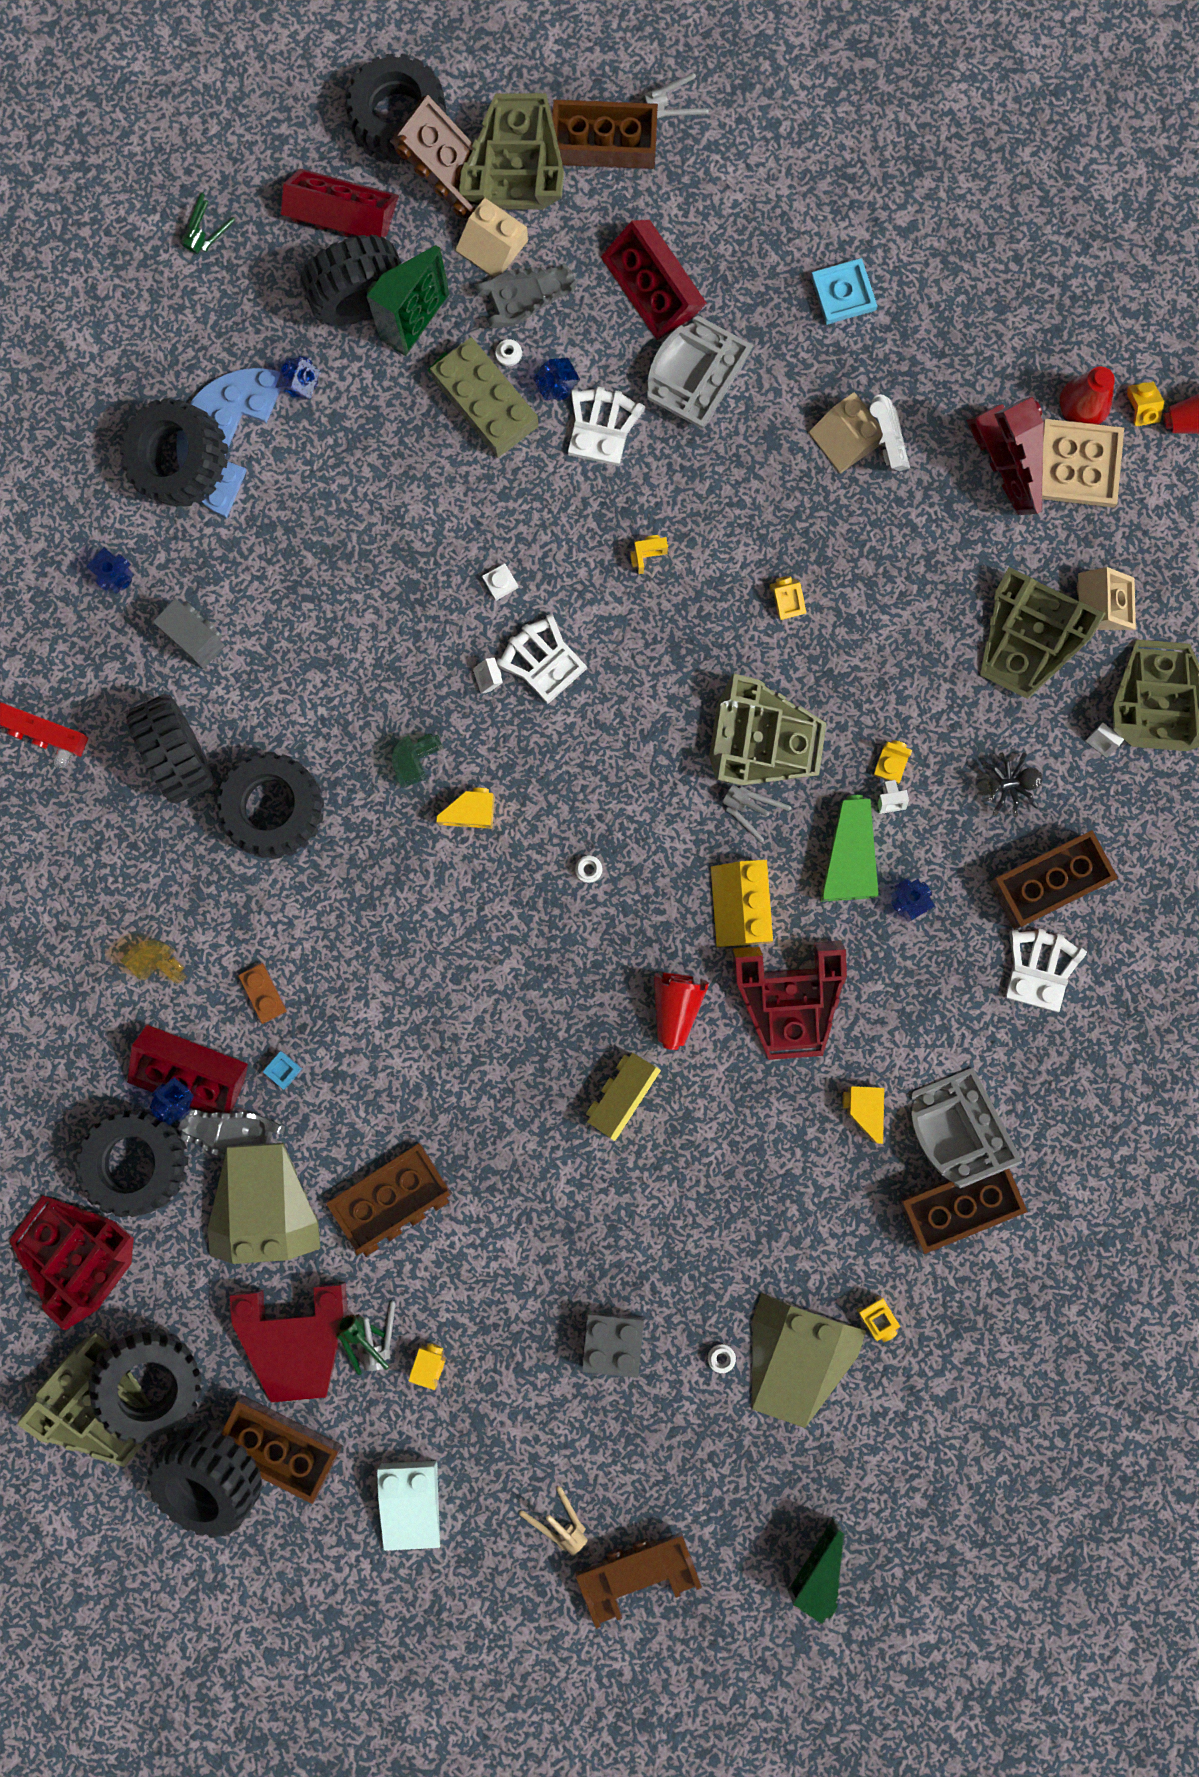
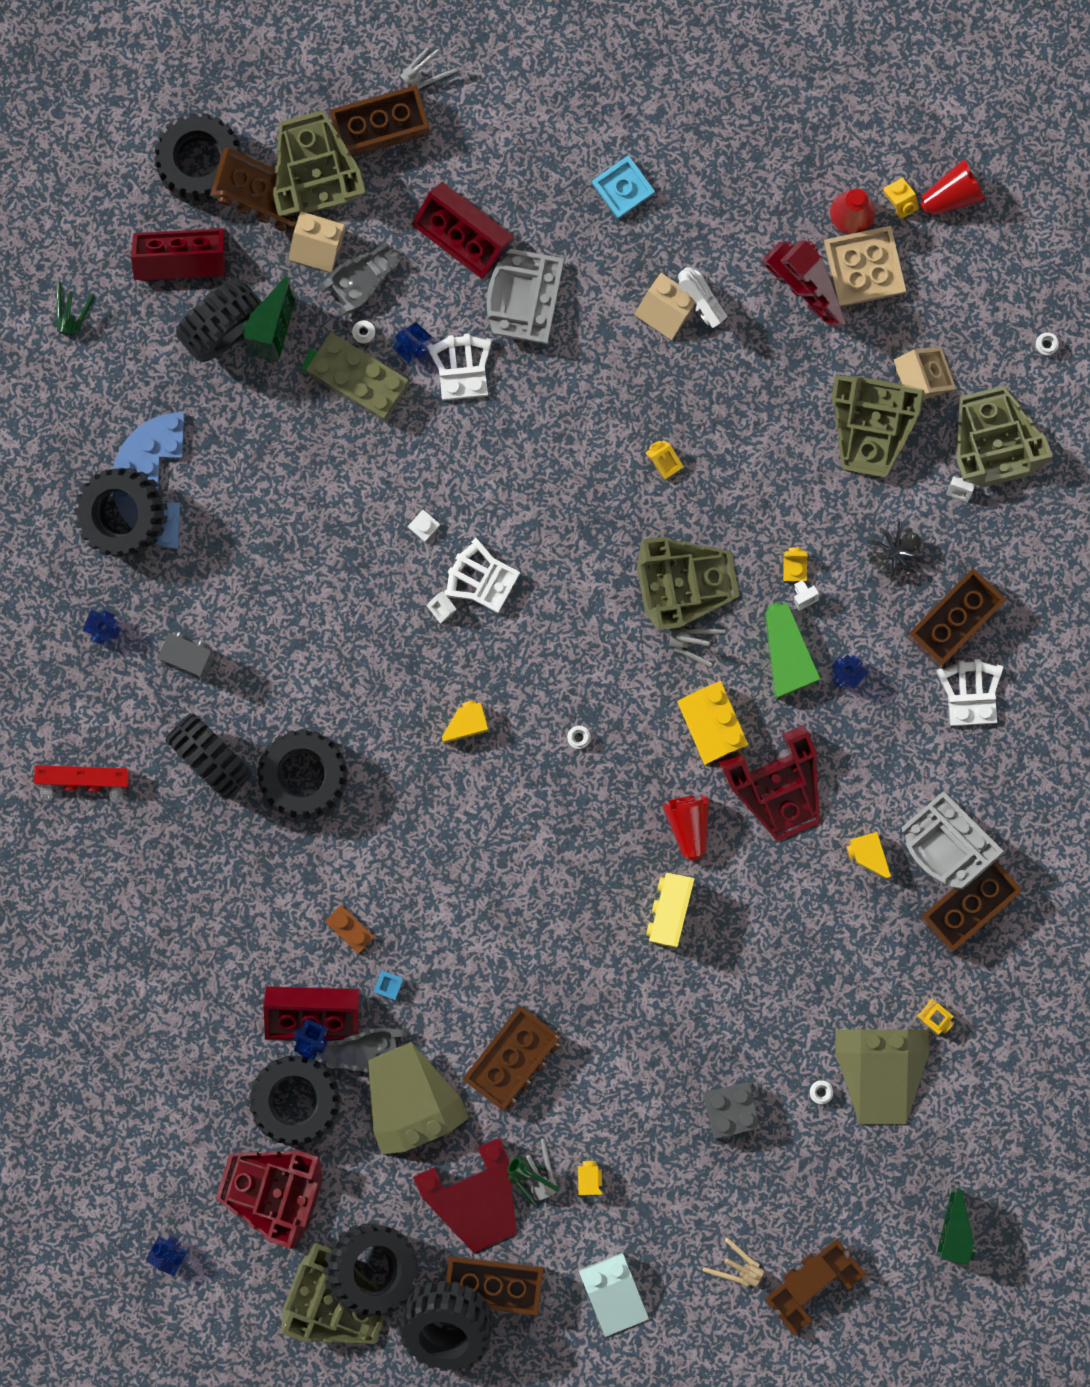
camera: 20 degrees left, 0 degrees up
(151, 955) = (248, 928): clear yellow brick -> none
(298, 378) = (198, 413): clear blue brick -> none
(407, 758) = (399, 695): clear green brick -> none
(649, 547) = (537, 455): yellow bracket -> none

